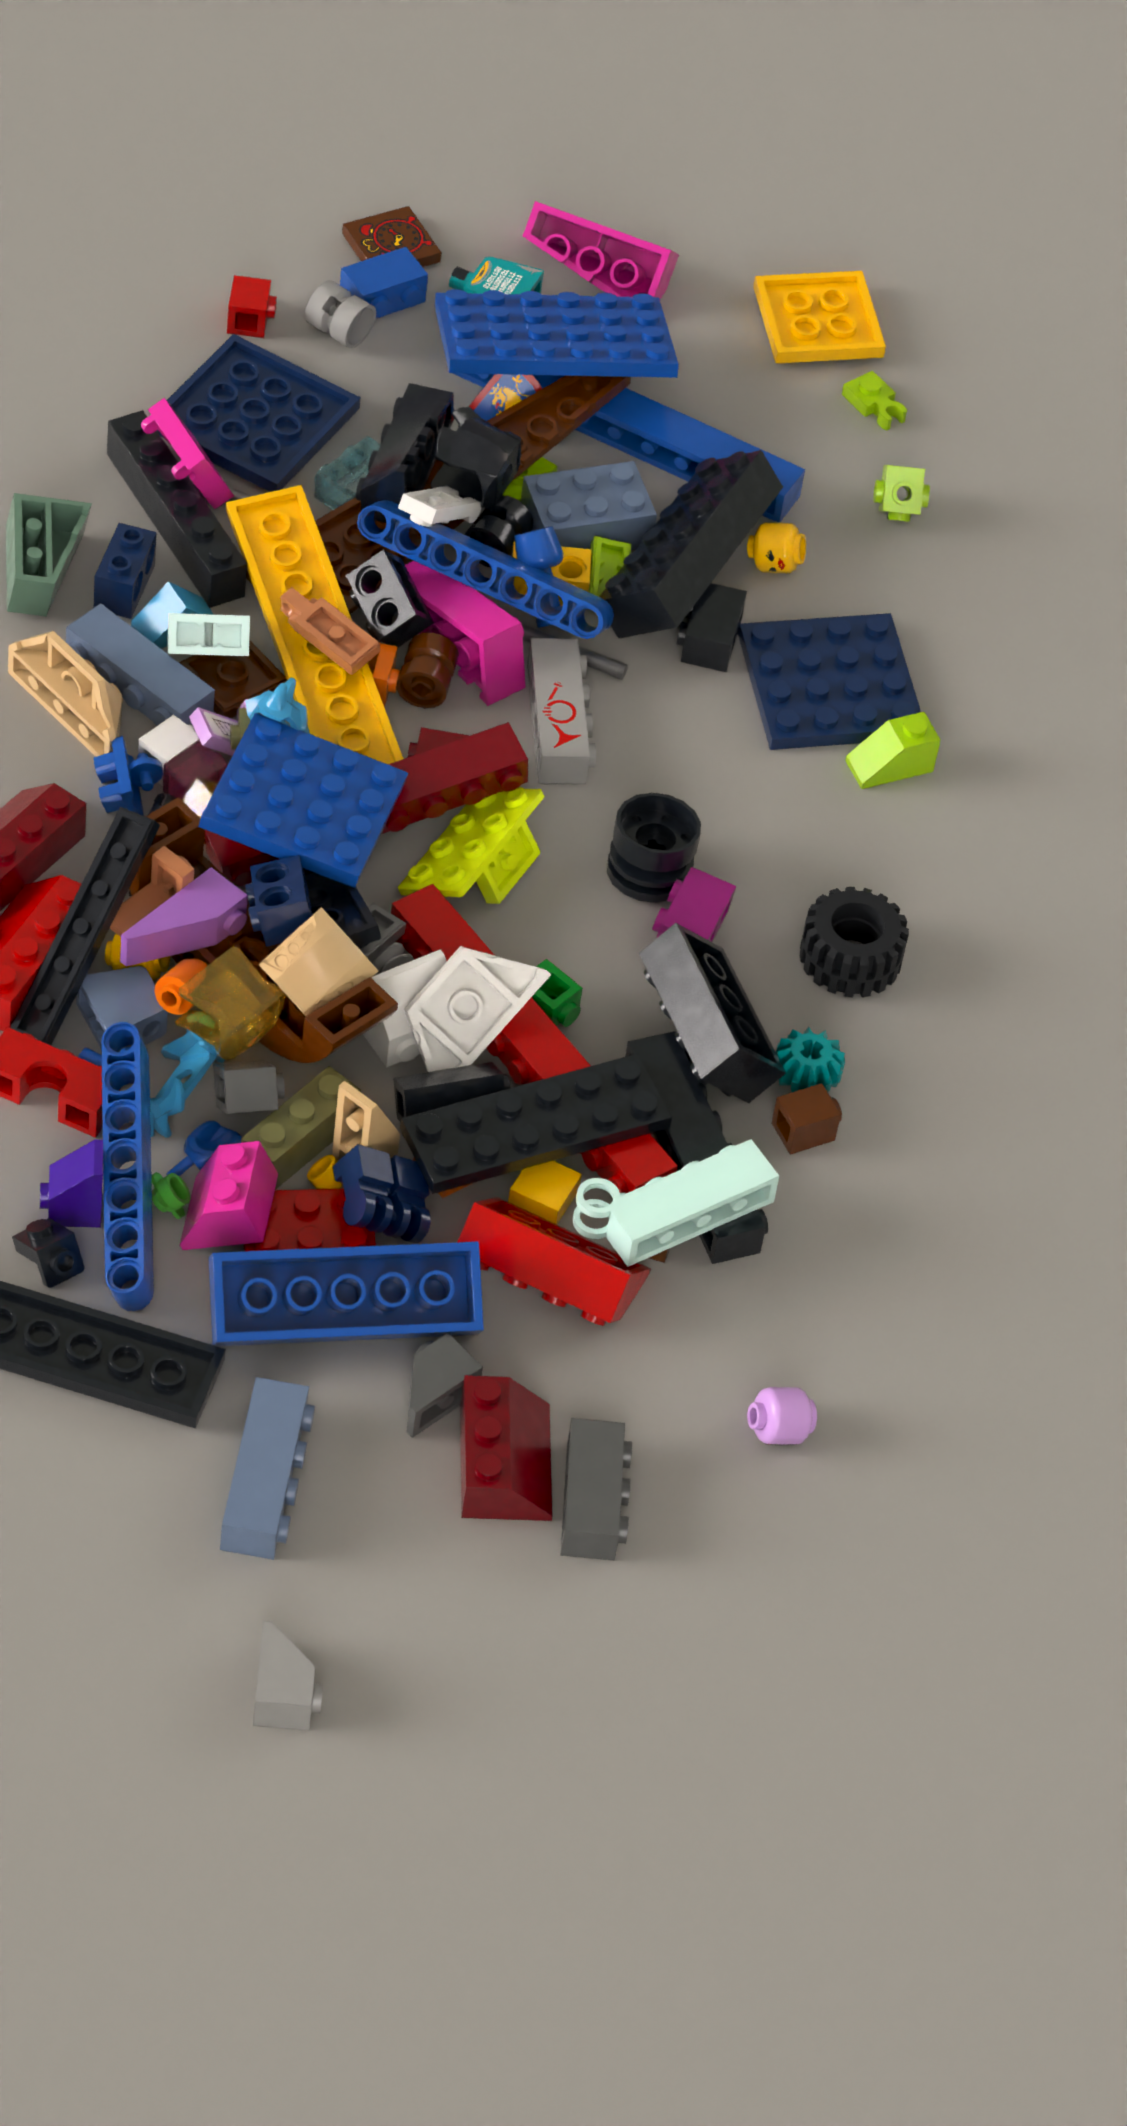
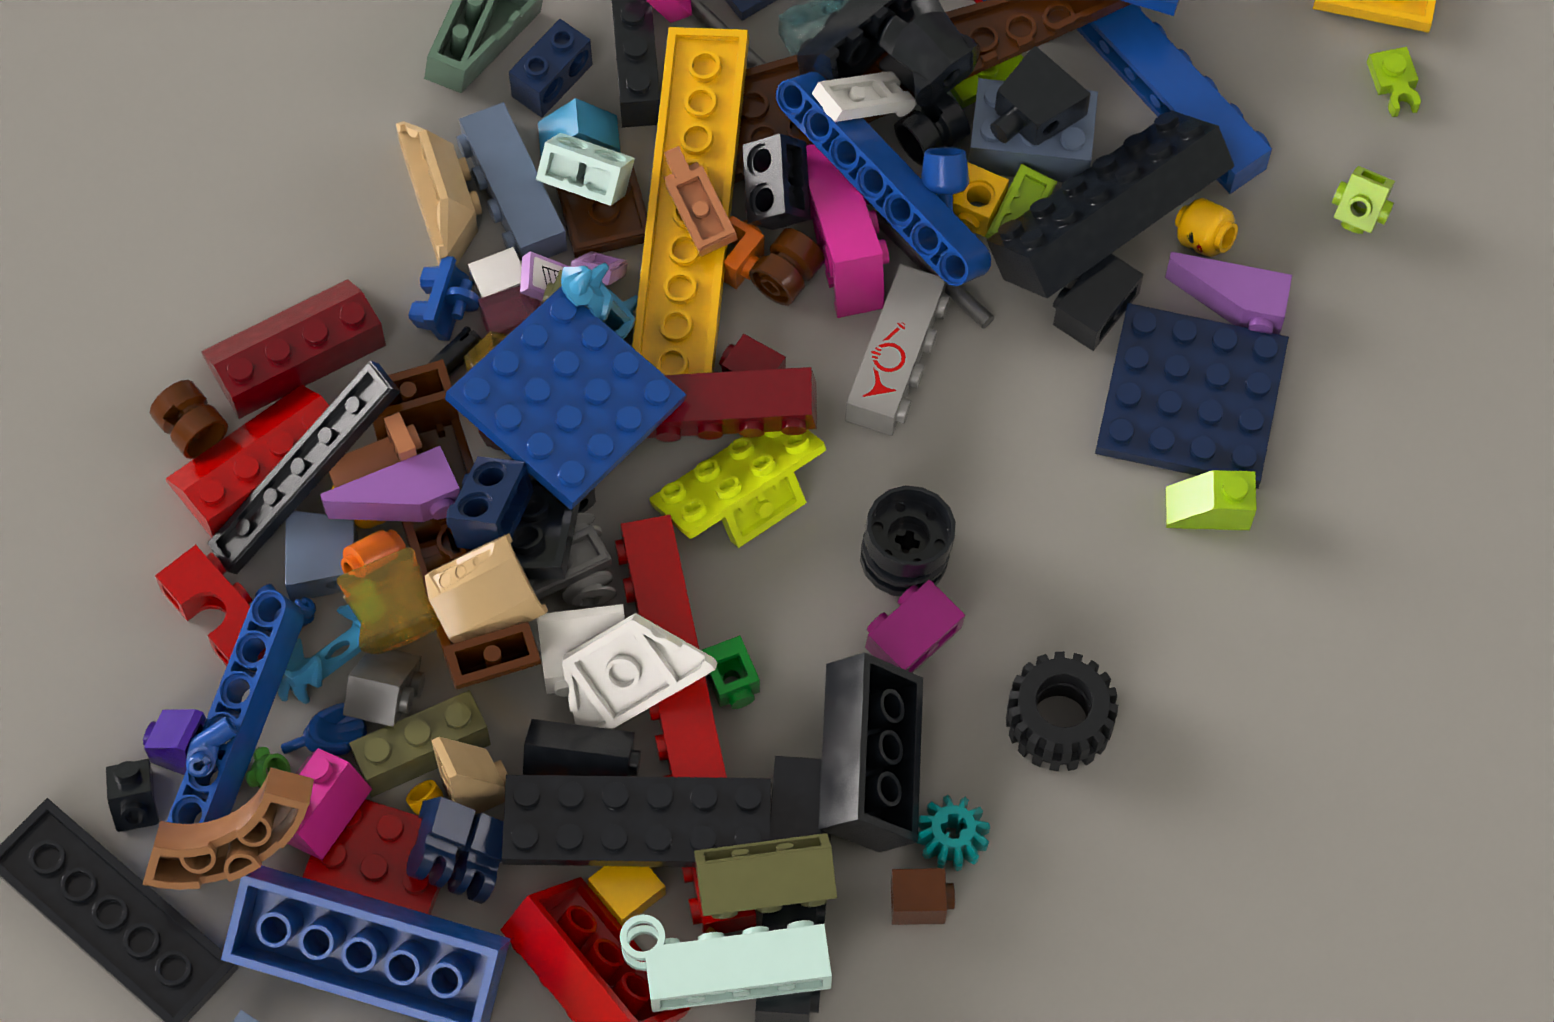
camera: 30 degrees right, 15 degrees up
(117, 1167) = (206, 745): none -> blue arm
(195, 1227) = (232, 845): none -> medium nougat brick
(594, 472) = (1038, 100): none -> black torso
(678, 1123) = (765, 875): none -> olive brick
(824, 588) = (1234, 291): none -> medium lavender slope

